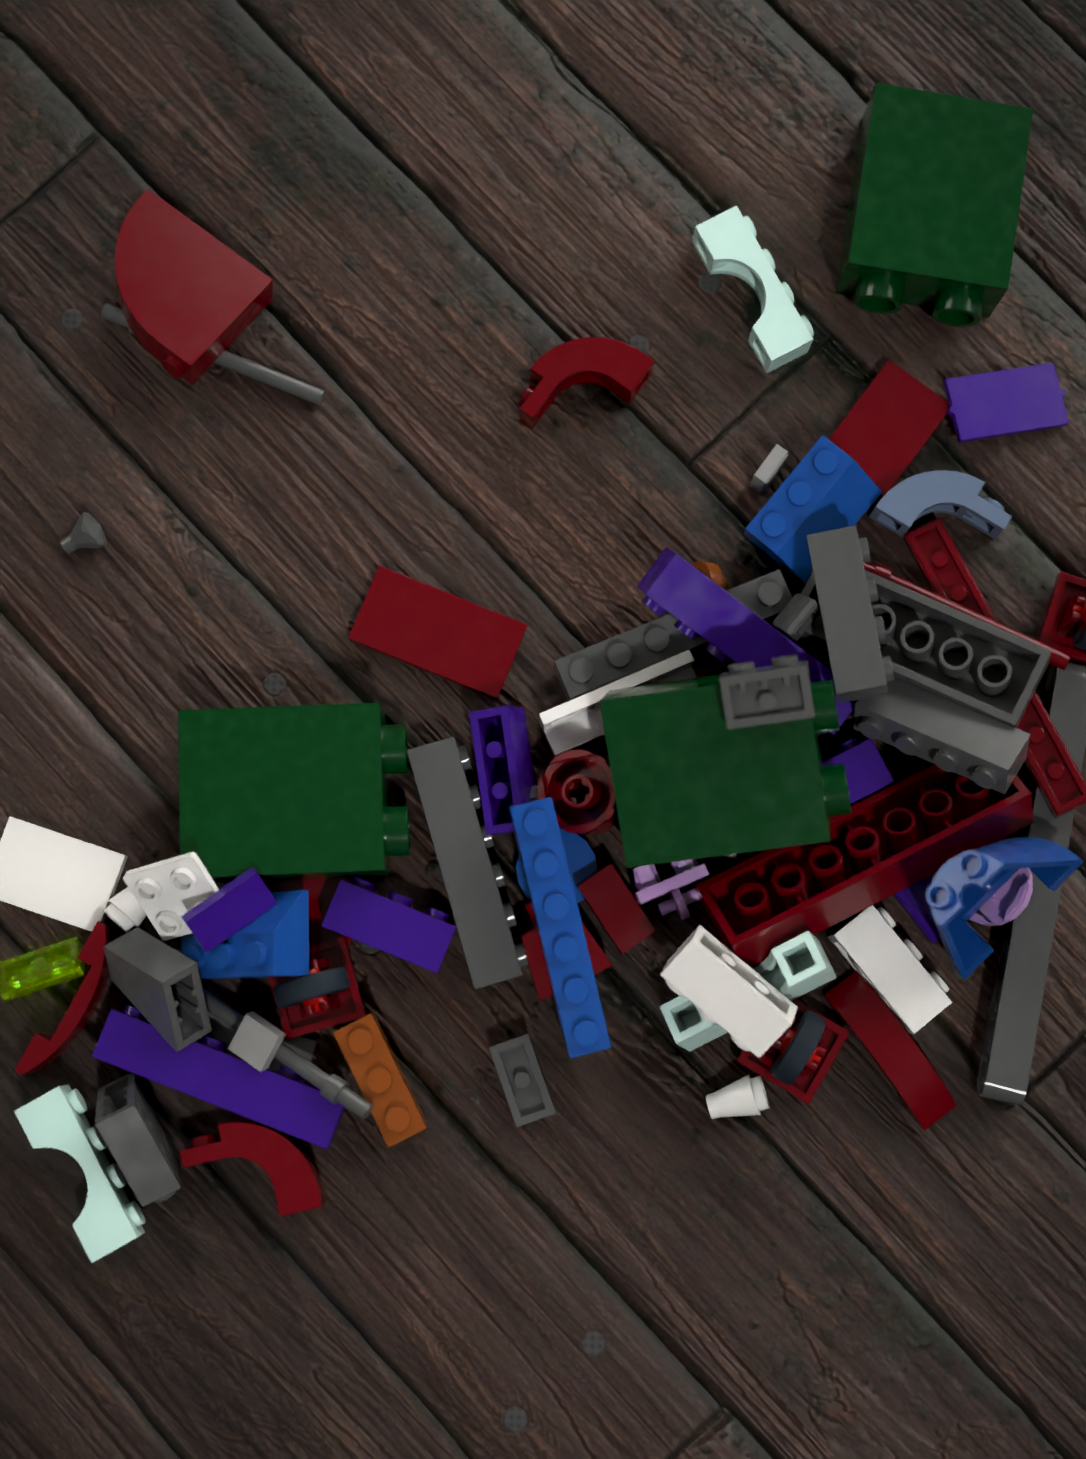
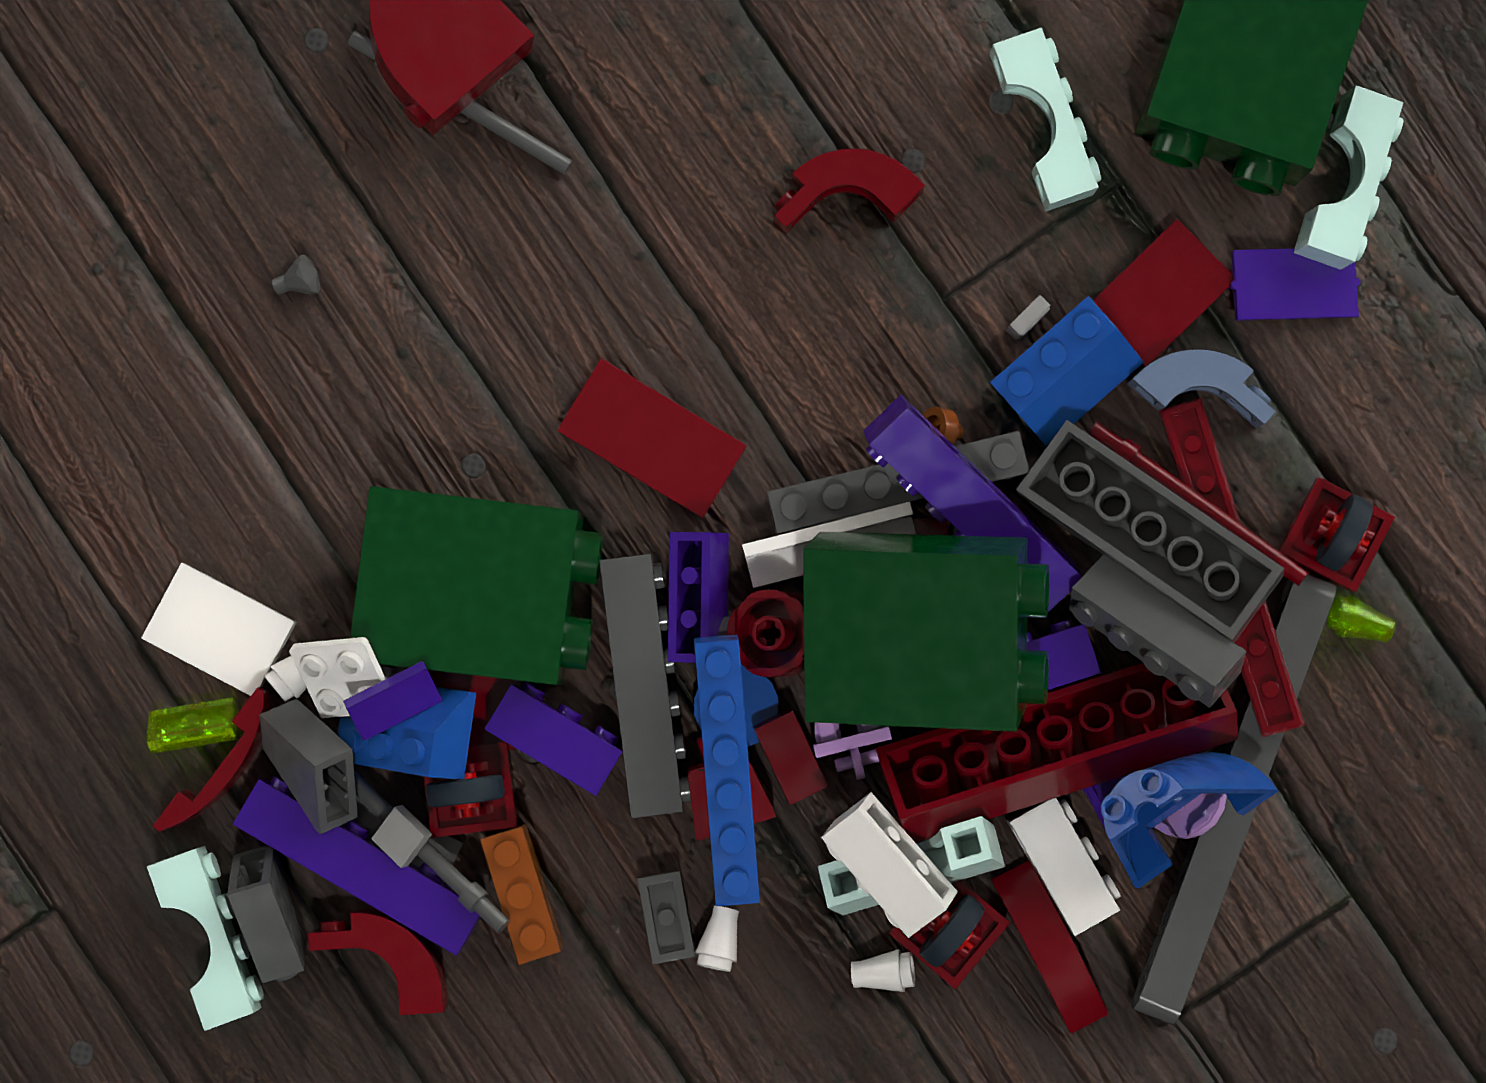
camera: 20 degrees right, 5 degrees up
(576, 1094) = (719, 941): none -> white cone
(766, 693) = (974, 571): dark grey bracket -> none
(797, 616) = (1026, 486): dark grey slope -> none
(848, 614) = (1080, 493): dark grey brick -> none
(1043, 255) = (1364, 129): none -> light aqua arch

